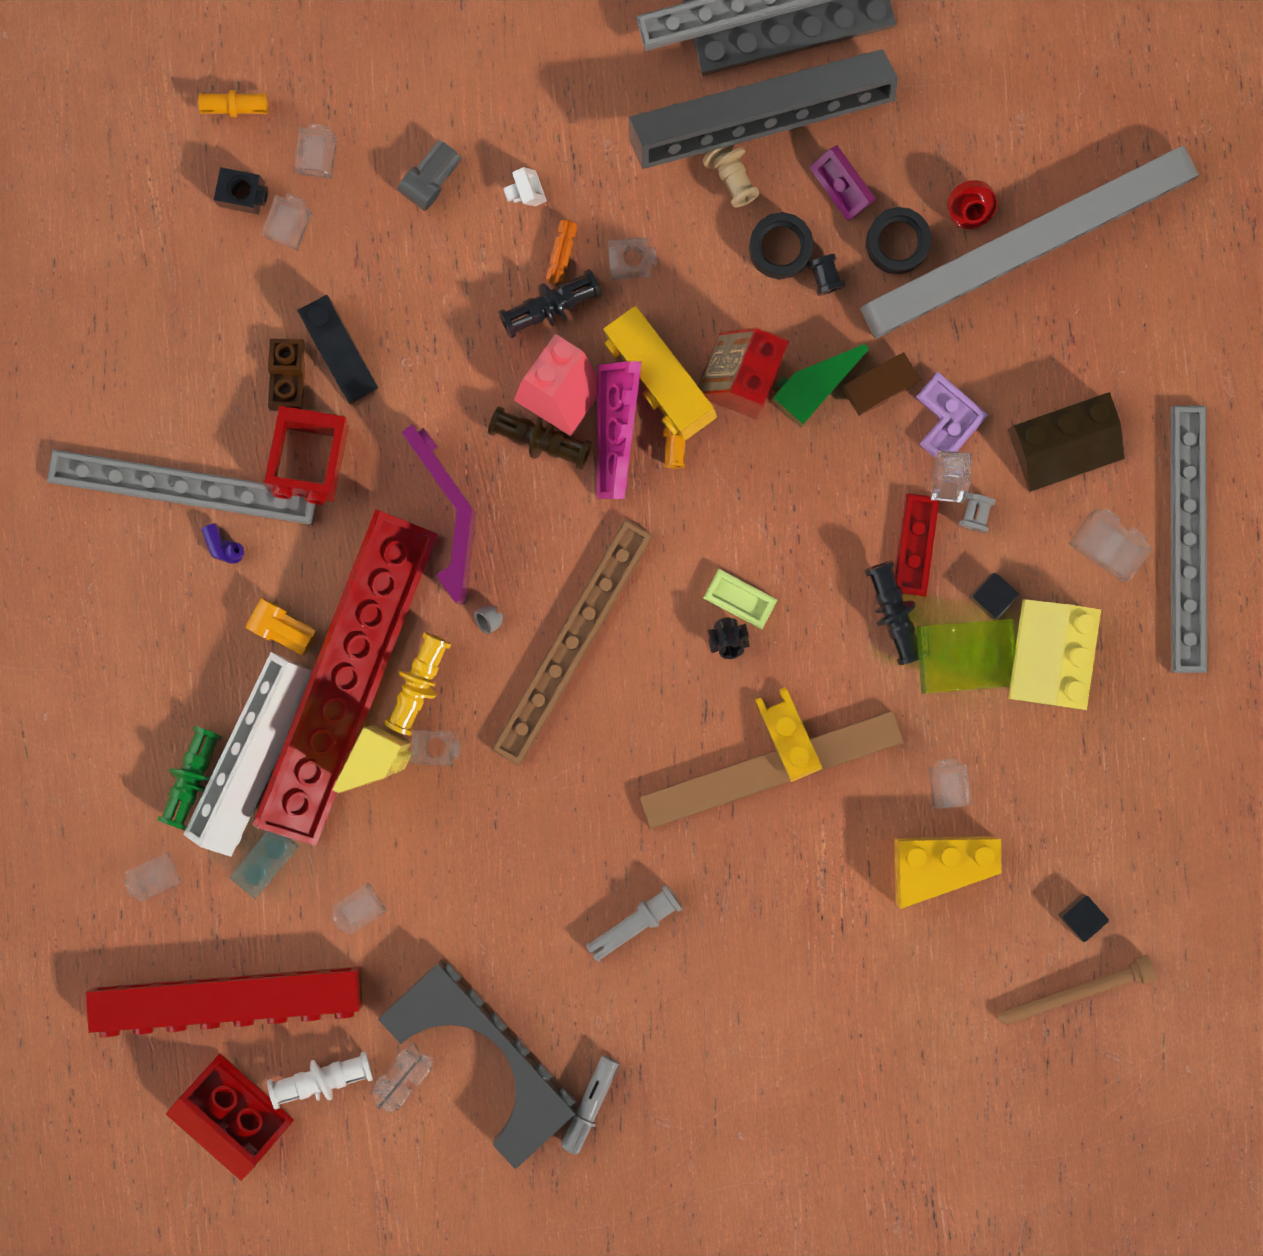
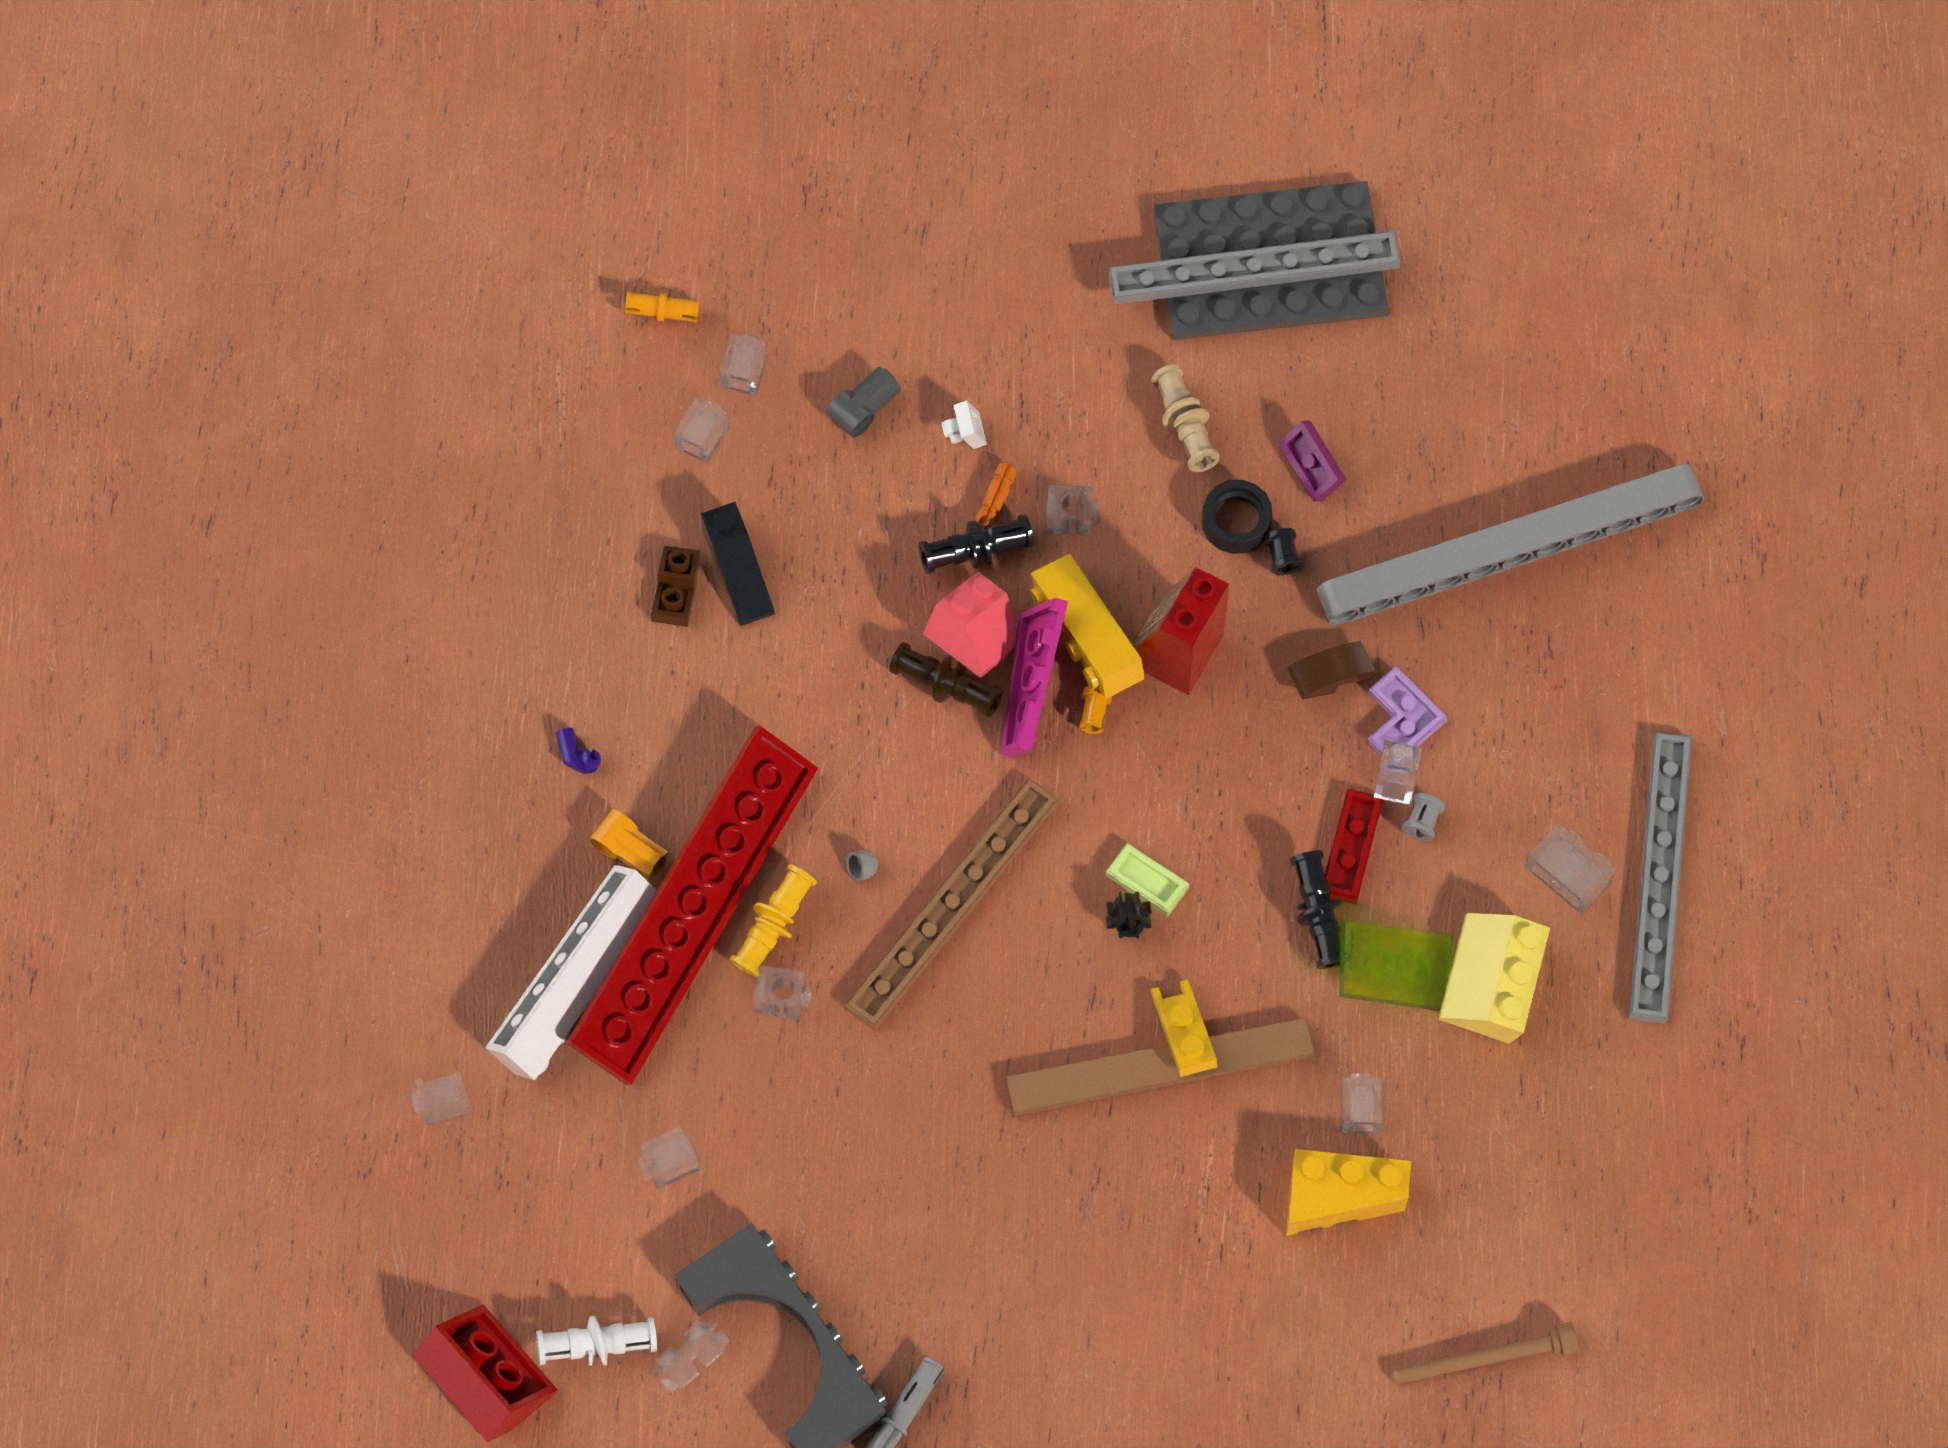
camera: 10 degrees right, 20 degrees down
(175, 486) = (543, 688): light grey tile -> none
(189, 778) = (500, 990): green piece -> none
(224, 1000) = (500, 1240): red brick -> none
(227, 184) = (650, 380): black brick -> none
(263, 863) = (570, 1095): clear light blue plate -> none
(313, 423) = (692, 635): red window -> none
(373, 758) = (712, 985): light yellow slope -> none
(456, 575) = (837, 797): magenta windscreen -> none
(647, 915) = (998, 1206): light grey pin -> none
(762, 108) = (1232, 370): dark grey brick -> none
(809, 387) = (1256, 661): green slope -> none
(901, 215) = (1370, 500): black tyre -> none
(972, 204) = (1451, 497): red plate -> none
(994, 596) = (1434, 908): black piece -> none
(1068, 441) = (1533, 753): dark brown slope -> none
(1083, 917) = (1500, 1272): black piece -> none

